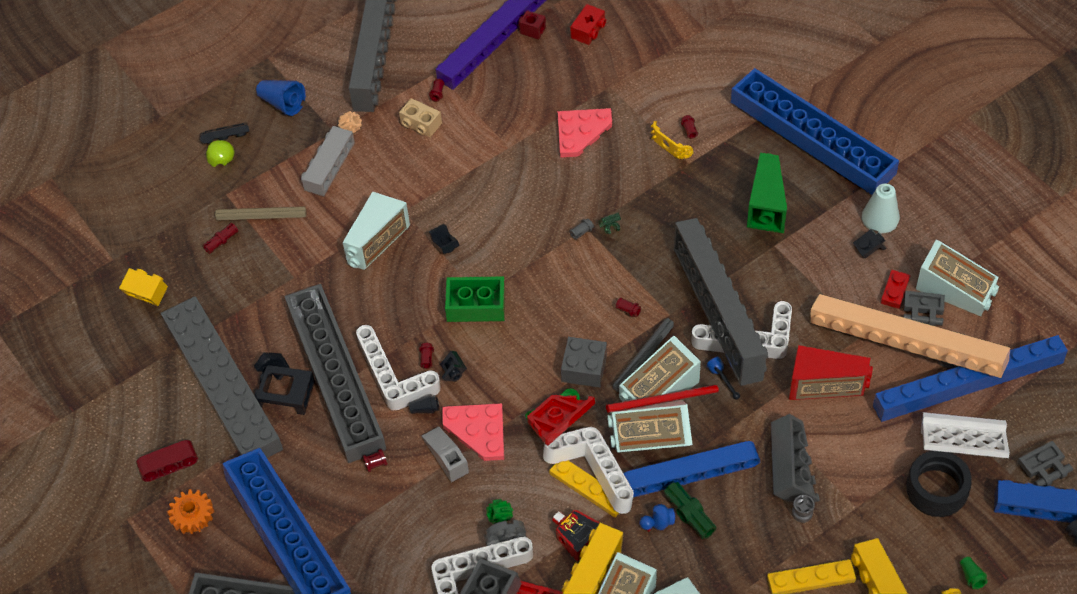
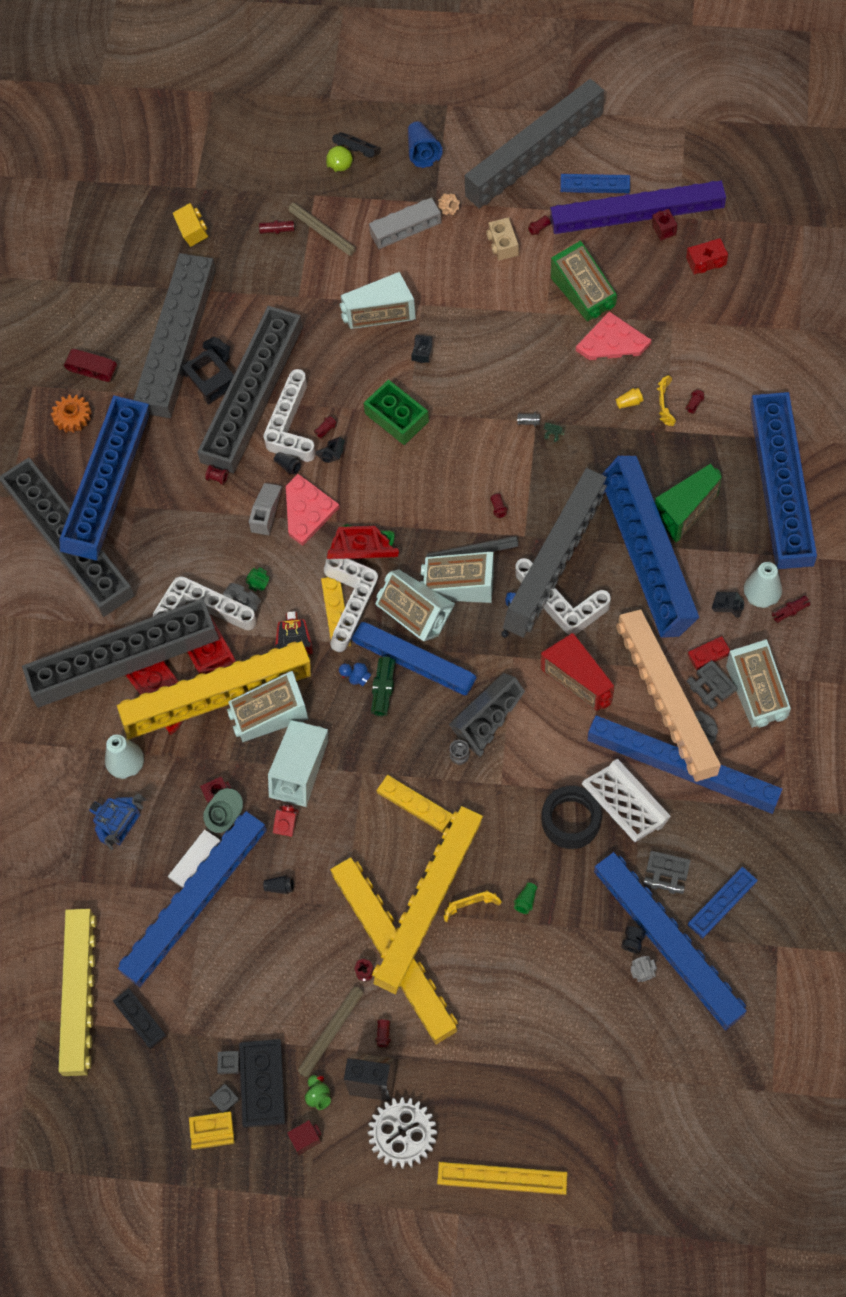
camera: 45 degrees right, 10 degrees up
(448, 33) = (595, 183): none -> blue plate
(517, 103) = (582, 281): none -> slope
(584, 362) = (423, 520): dark grey brick -> none
(641, 158) = (630, 398): none -> yellow cone
(661, 398) = (440, 591): red piece -> none
(779, 246) = (649, 547): none -> blue brick
(916, 213) = (790, 609): none -> dark red pin

